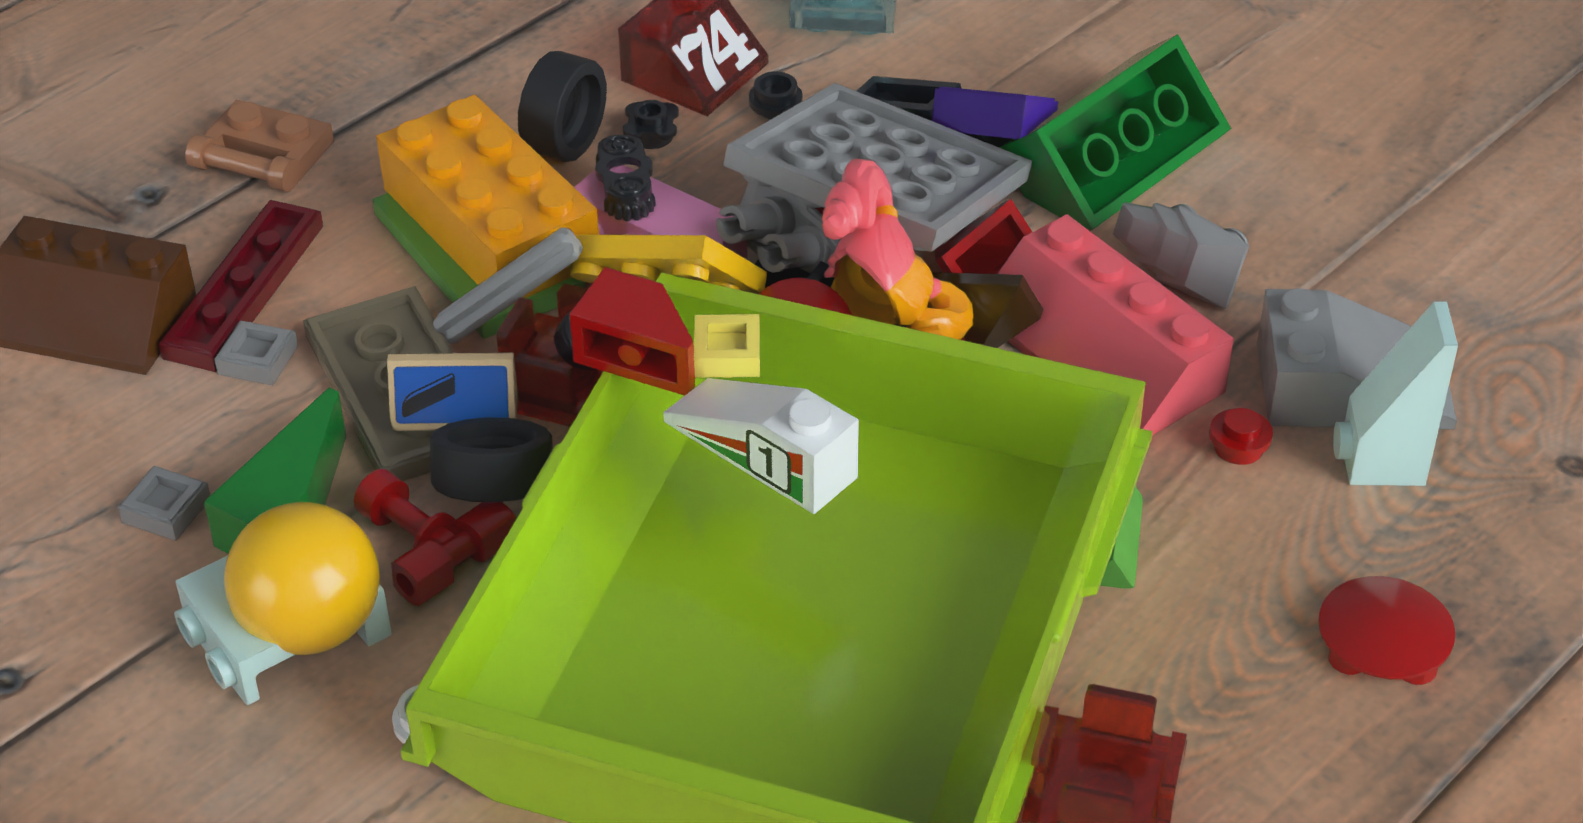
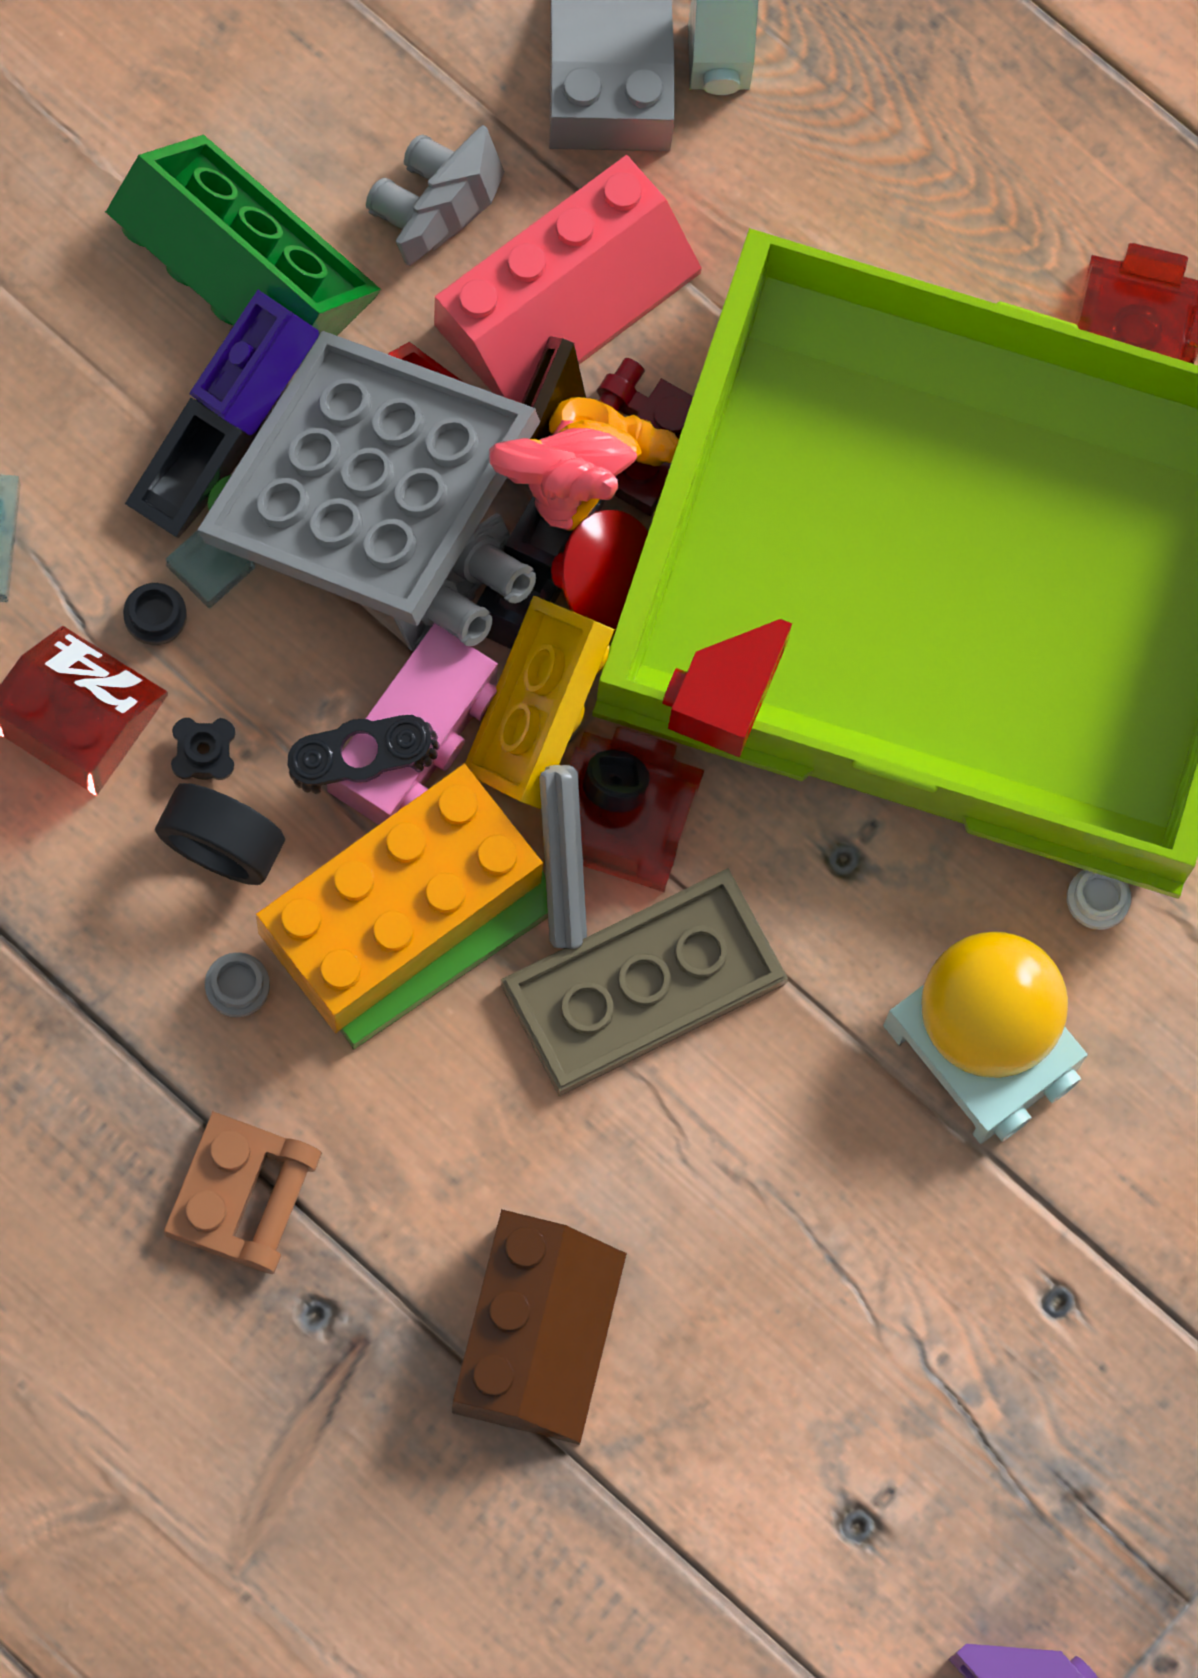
camera: 100 degrees left, 30 degrees up
(164, 503) = (828, 1192): light grey tile -> none
(241, 283) = (484, 1170): dark red tile -> none
(256, 352) = (600, 1138): light grey tile -> none
(288, 469) = (830, 1064): green slope -> none
(438, 540) = (884, 905): red bar -> none
(449, 388) = (704, 908): slope -> none
(488, 458) = (764, 828): black tyre -> none
(727, 346) = (739, 599): light yellow plate -> none
(775, 435) = (864, 562): white slope -> none
(1240, 435) = (701, 173): red plate -> none
(1386, 629) = (944, 80): red dish -> none

